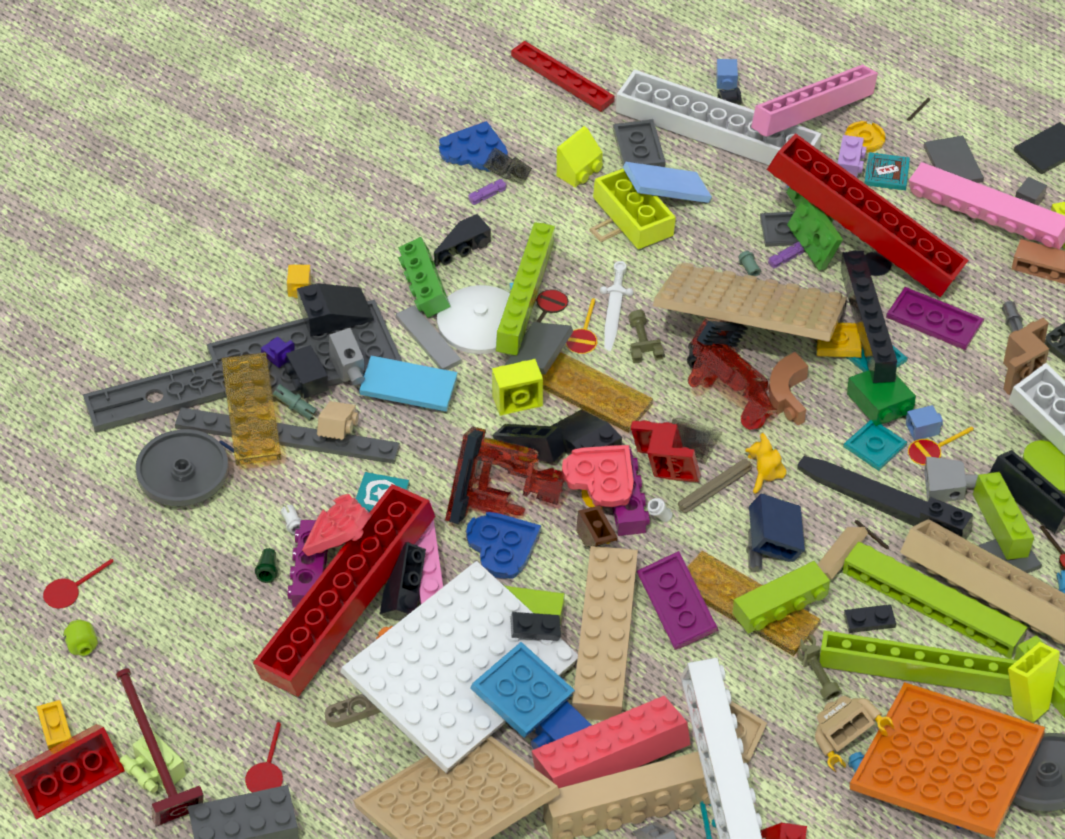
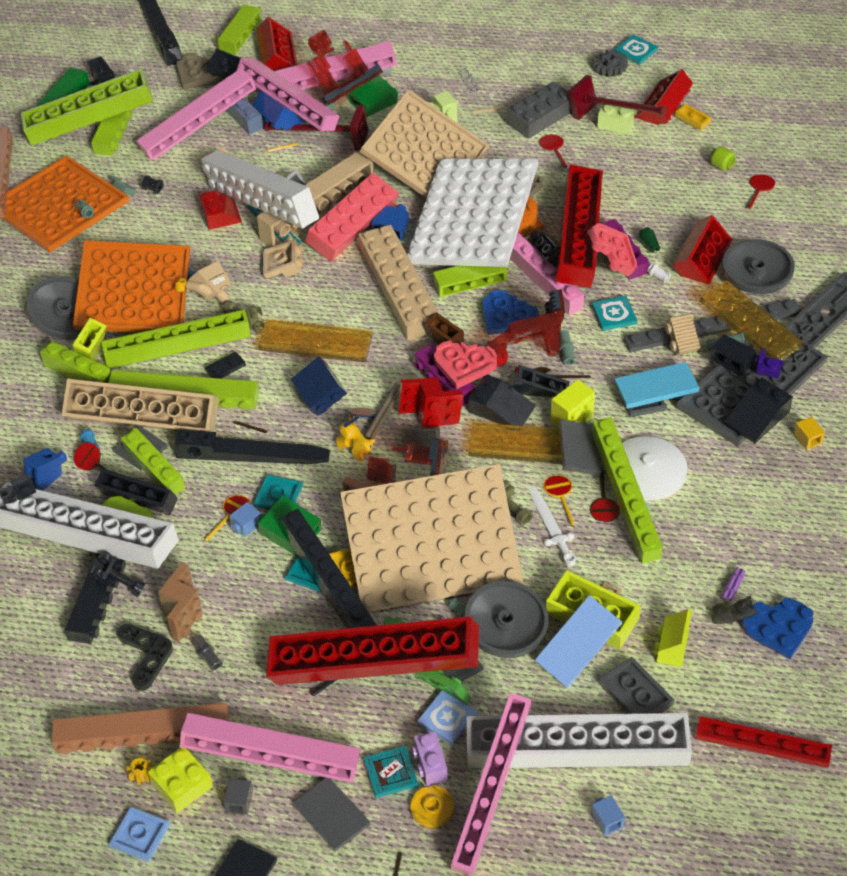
camera: 155 degrees right, 0 degrees up
(222, 522) = (703, 250): none -> red slope
(346, 356) = (712, 369): light grey torso -> none
(424, 277) = (715, 471): bright green brick -> none
(428, 338) = (675, 435): light grey tile -> none
(466, 235) = (713, 525): black slope -> none
(522, 689) = (423, 208): dark azure plate -> none
(535, 626) = (441, 247): black plate -> none
(657, 508) = (411, 369): white pin -> none
(677, 600) = (363, 319): magenta tile -> none
(718, 230) = (509, 618): none -> dark grey dish
(732, 96) = (588, 788): black bush -> none
(740, 488) = (360, 412): none -> piece
(781, 597) = (289, 338): lime brick -> none
(835, 557) = (266, 397): tan tile -> none
(935, 318) = (257, 625): magenta tile -> none
(947, 479) = (208, 480): light grey torso -> none

